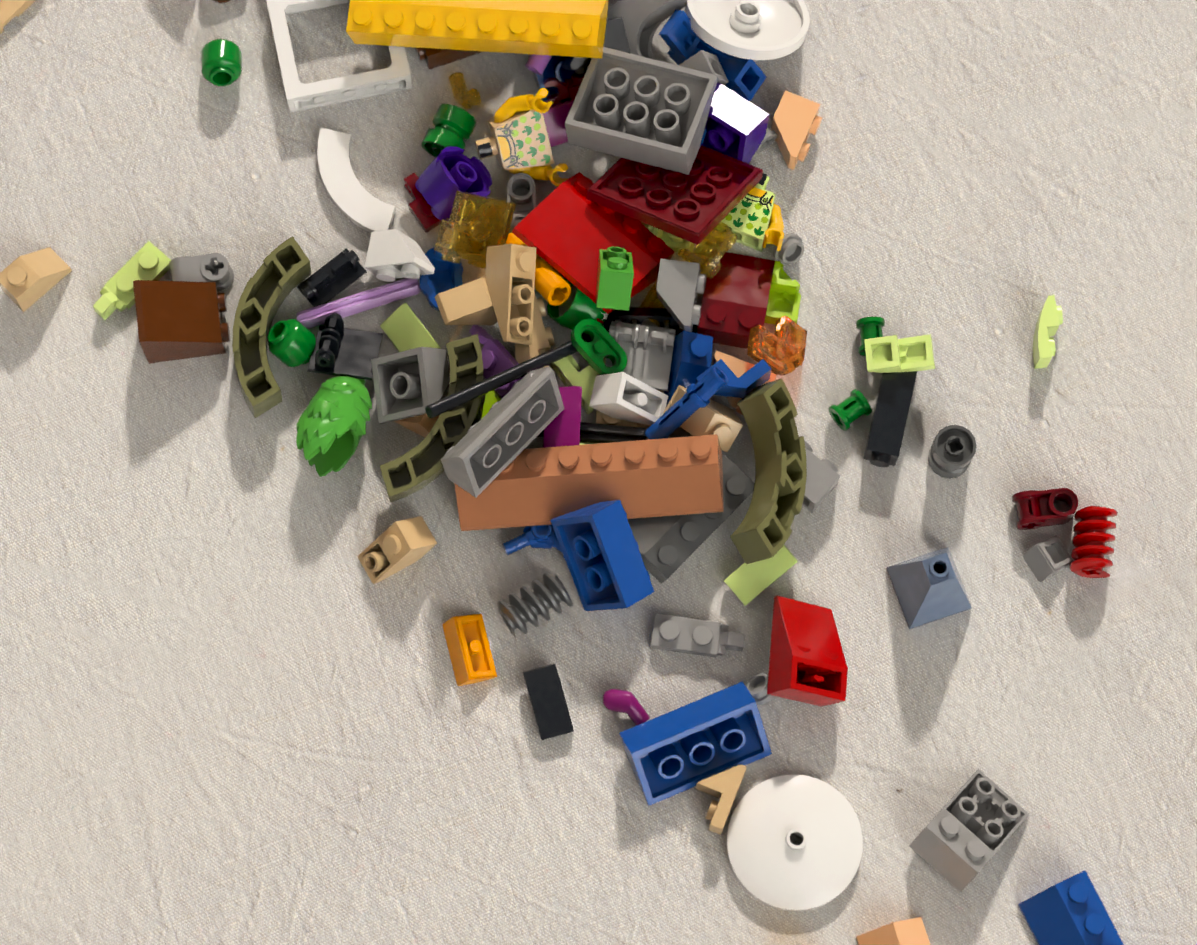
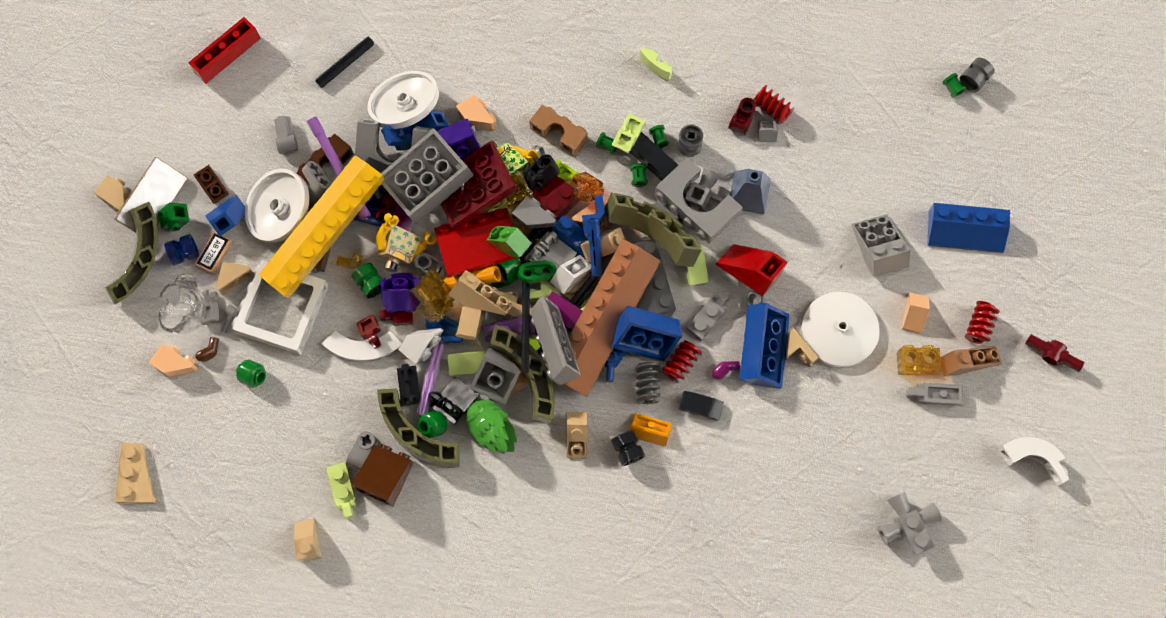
camera: 55 degrees left, 0 degrees up
(378, 175) = (368, 330): none -> dark red plate
(417, 633) = (627, 446): none -> black wheel
(597, 634) = (680, 360): none -> red piece
(760, 267) = (542, 170): none -> black piece
(828, 549) = (706, 224): none -> light grey arch
(847, 229) = (547, 120): none -> medium nougat arch
(868, 516) = (700, 196): none -> light grey brick
(930, 404) = (659, 136): none -> green bush

